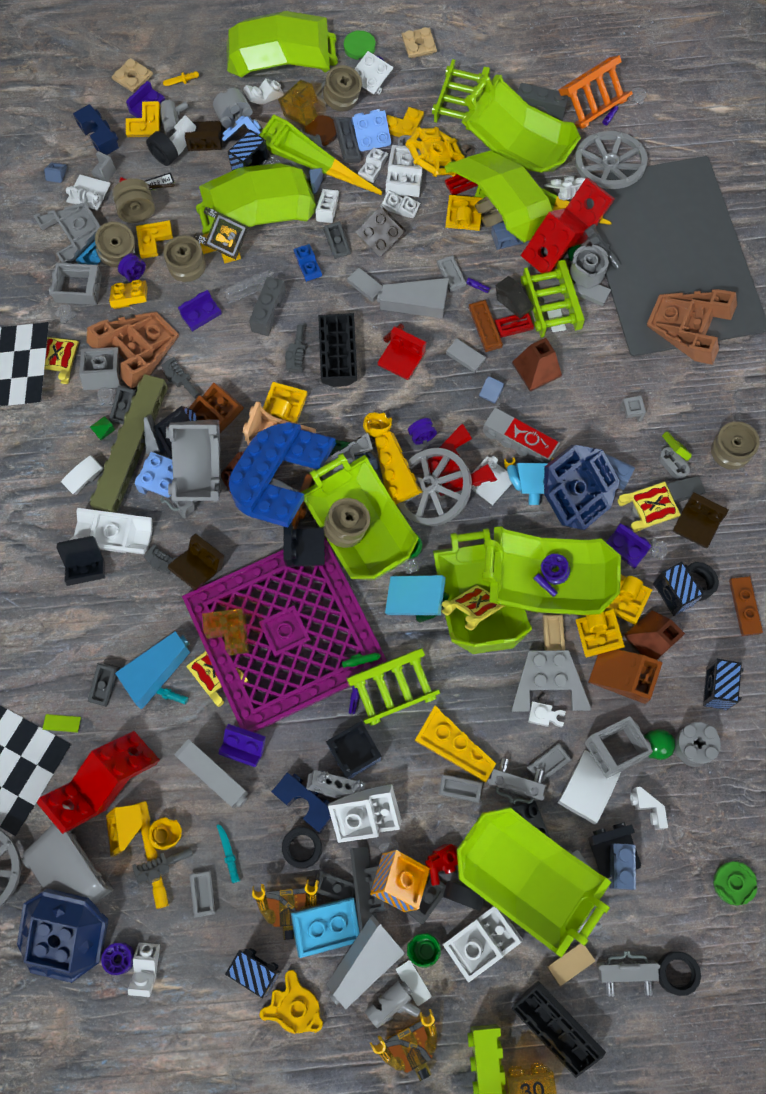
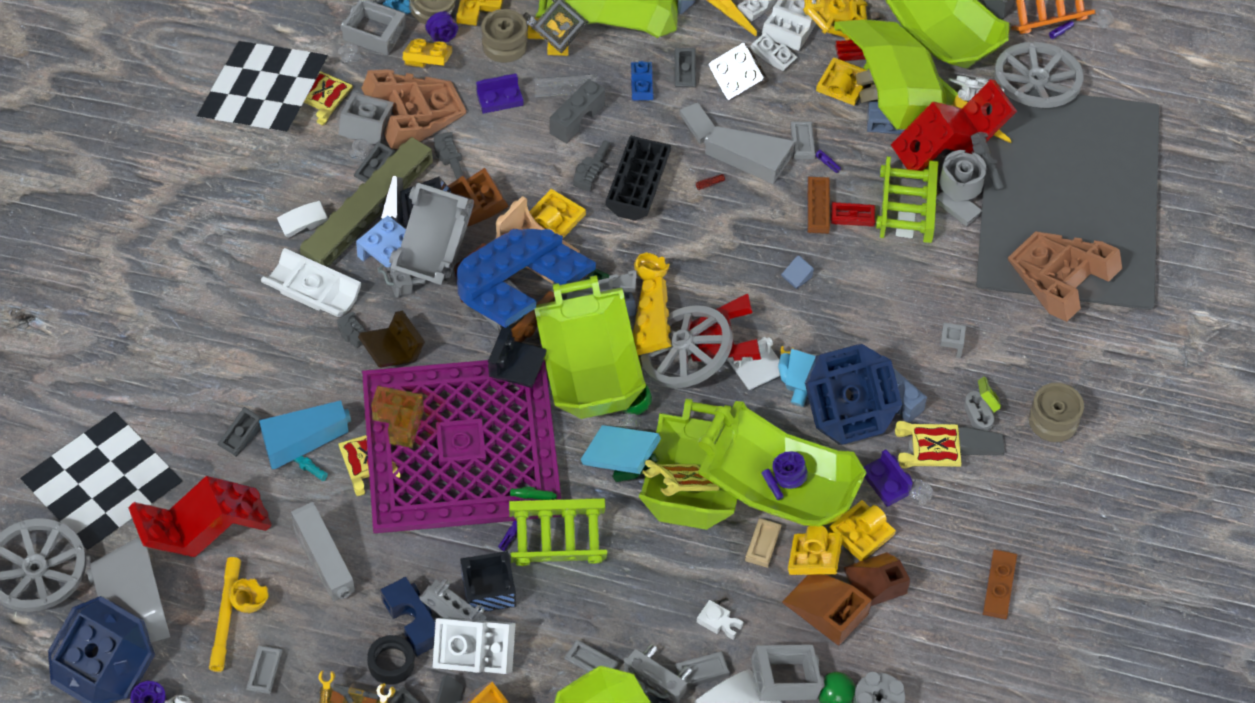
camera: 15 degrees right, 15 degrees down
(61, 723) = (180, 457): lime sticker -> none
(81, 560) = (268, 299): black bracket -> none
(102, 428) = (344, 180): green slope -> none
(122, 826) = (207, 571): yellow slope -> none
(158, 867) = (224, 626): dark grey piece -> none
(230, 858) = (308, 646): teal piece -> none
(242, 745) = (368, 537): dark purple bracket -> none
(327, 206) = (687, 31): white slope -> none
(346, 522) = (573, 349): dark tan wheel -> none
(402, 353) = (711, 204): red bracket -> none
(422, 430) = (699, 288): dark purple wheel -> none
(452, 744) = (597, 609): yellow wing -> none
(465, 355) = (783, 229): light grey tile -> none
(513, 297) = (862, 183): clear smoke slope -> none
(520, 437) = (805, 324): brick -> none
(538, 365) = (861, 261): copper slope -> none
(549, 672) = (739, 576): light grey wing -> none
(678, 588) = (924, 535): black container -> none
(700, 520) = (983, 477): dark brown bracket -> none
(709, 576) = (962, 528): black tyre -> none
(722, 684) = (933, 647): black container -> none

